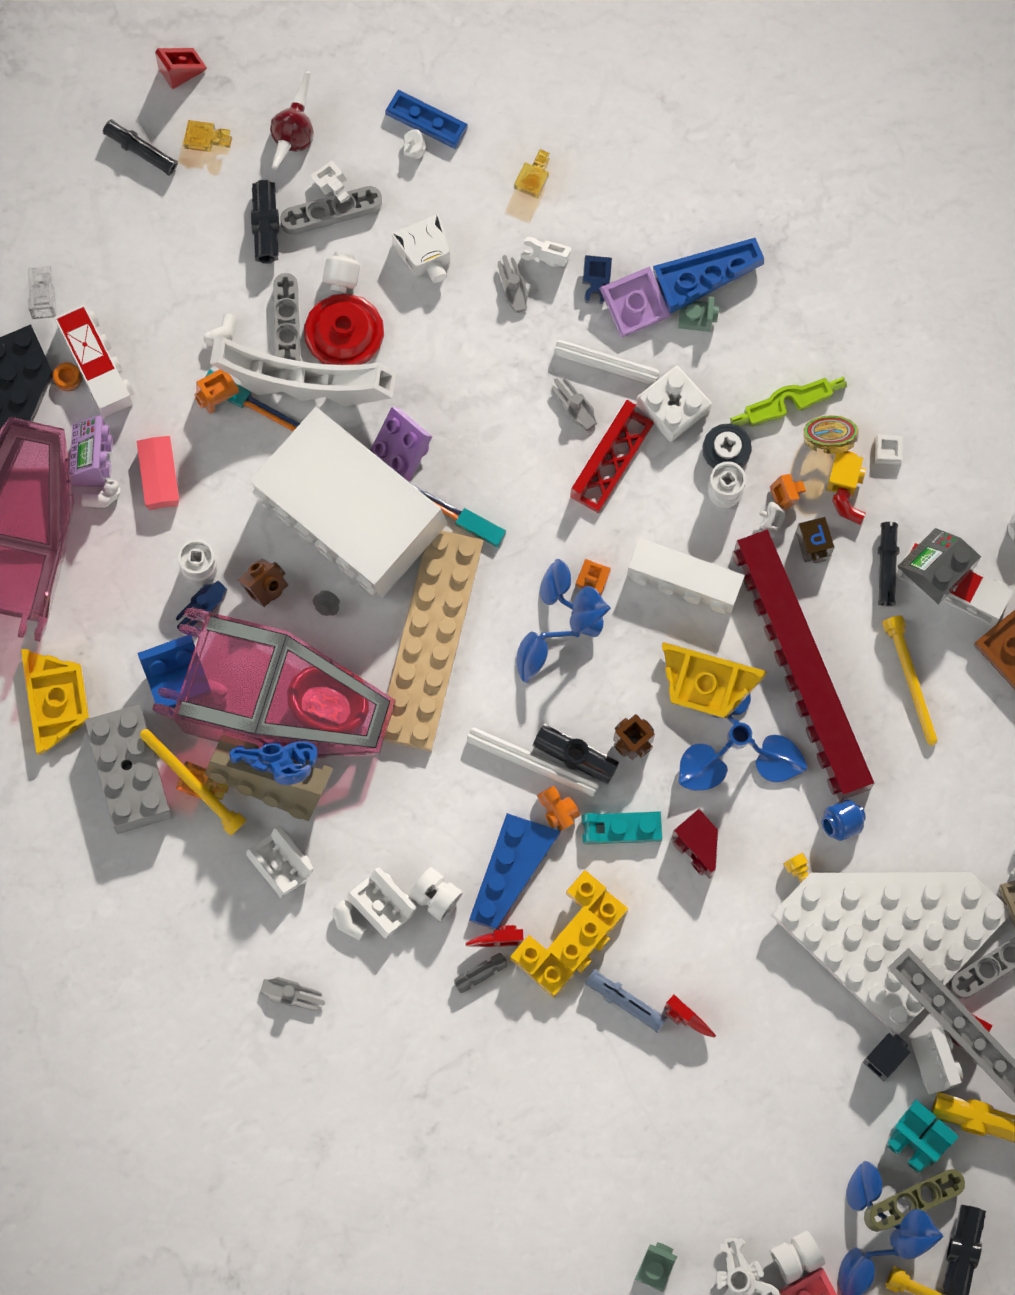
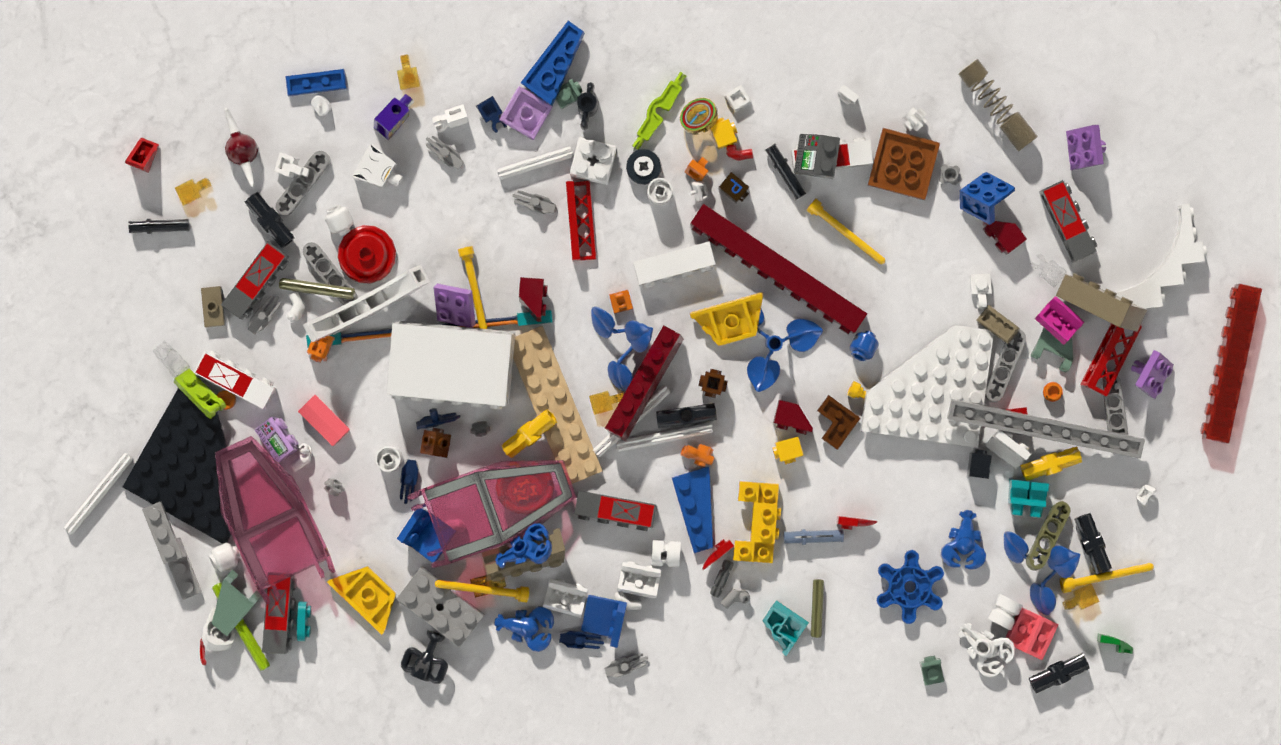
camera: 30 degrees left, 15 degrees up
(43, 346) = (199, 393): none -> lime plate
(63, 819) = (425, 662): none -> black piece
(111, 551) = (333, 487): none -> light grey plate
(131, 270) = (212, 309): none -> dark tan plate
(176, 317) = (262, 317): none -> light grey piece
(199, 273) = (255, 280): none -> dark grey brick
(211, 865) = (528, 627): none -> blue animal
(258, 923) = (577, 640): none -> dark blue piece
(260, 325) = (317, 288): none -> olive axle
(283, 559) = (436, 419): none -> dark blue piece
(308, 917) = (604, 618): none -> blue bracket
(378, 645) = (529, 433): none -> yellow piece
(414, 802) = (615, 509): none -> dark grey brick
(455, 405) = (467, 255): none -> yellow piece
(482, 1005) = (735, 596): none -> light grey arm
(483, 204) = (387, 121): none -> dark purple torso
(490, 673) = (603, 401): none -> clear yellow plate
(496, 497) = (531, 296): none -> dark red slope
(507, 717) = (610, 440): none -> white axle
(515, 1083) = (784, 625): none -> teal slope
(553, 680) = (644, 383): none -> dark red brick
(569, 1090) = (817, 608): none -> olive axle
(622, 827) = (742, 438): teal plate -> none
(667, 876) = (788, 450): none -> yellow brick
(711, 337) = (587, 105): none -> black piece
(713, 1126) = (923, 586): none -> blue plate
(757, 887) = (842, 419): none -> reddish brown plate
(805, 1138) = (965, 543): none -> blue animal

